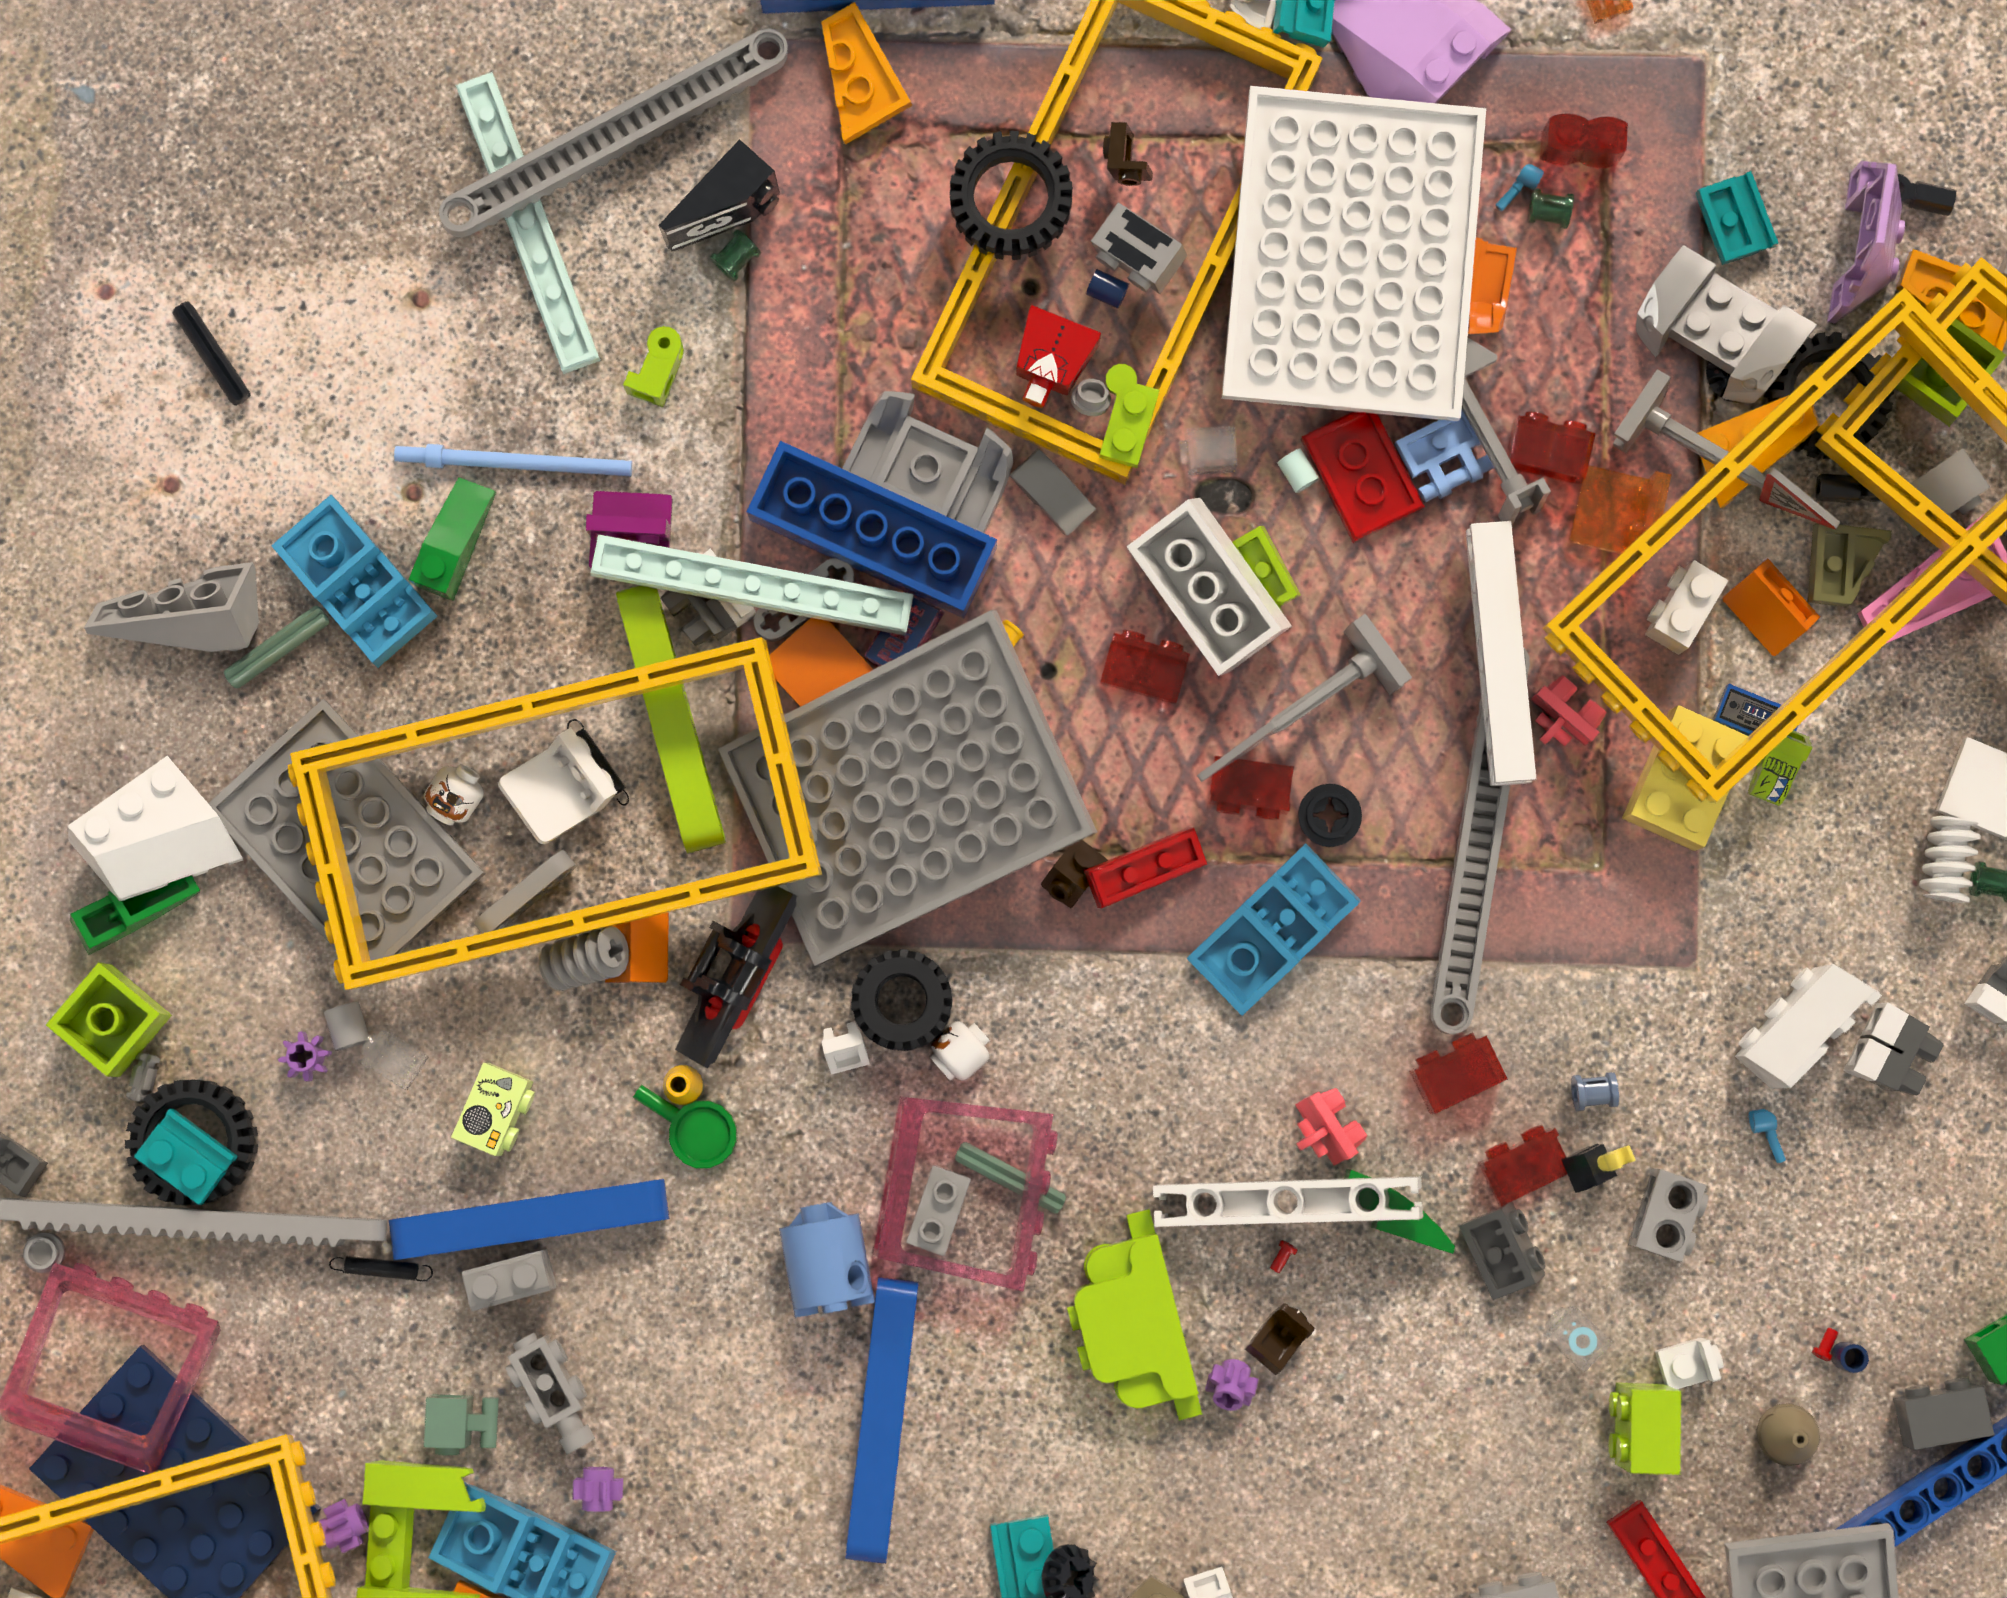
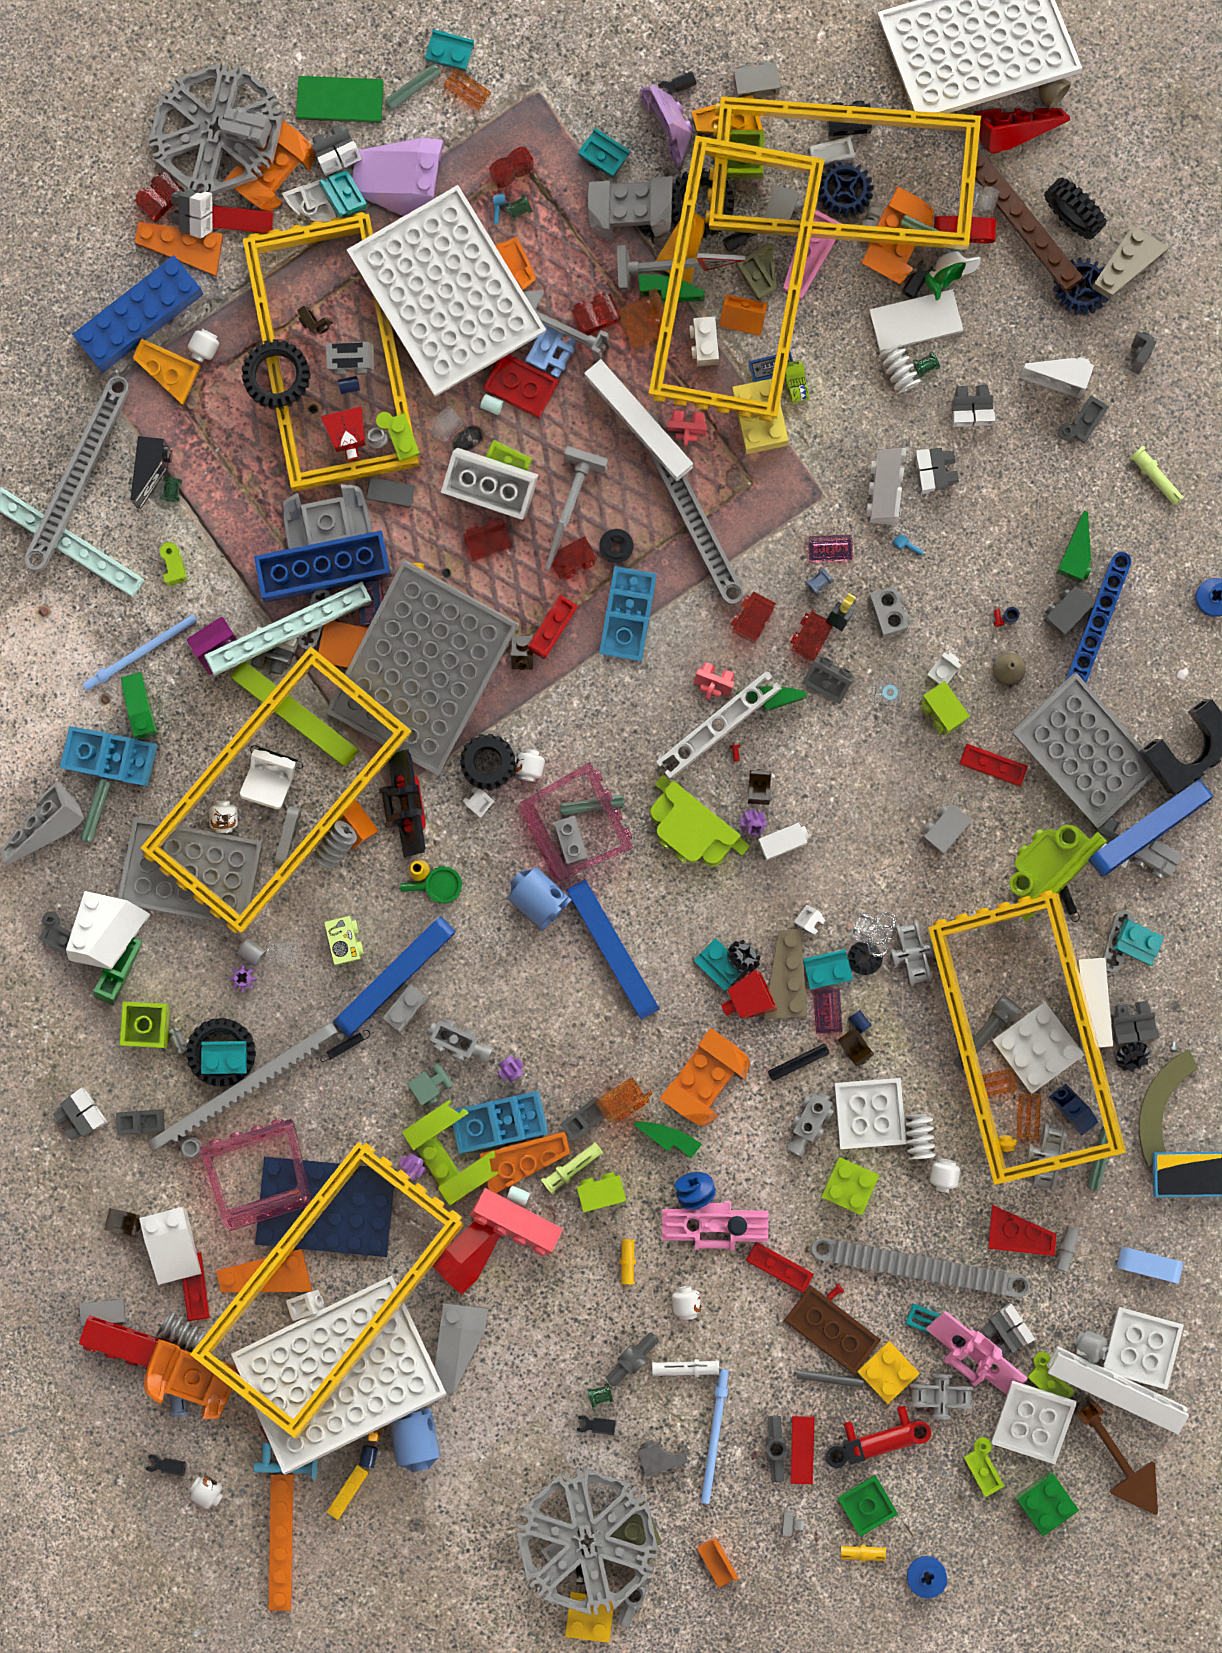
camera: 30 degrees left, 0 degrees up
(81, 786) = (54, 934): none -> dark grey hinge
(937, 77) = (203, 345): none -> white head
(1256, 1448) = (783, 841): none -> white brick
(1649, 1052) = (830, 548): none -> clear pink slope
(1666, 458) = (687, 293): none -> green slope

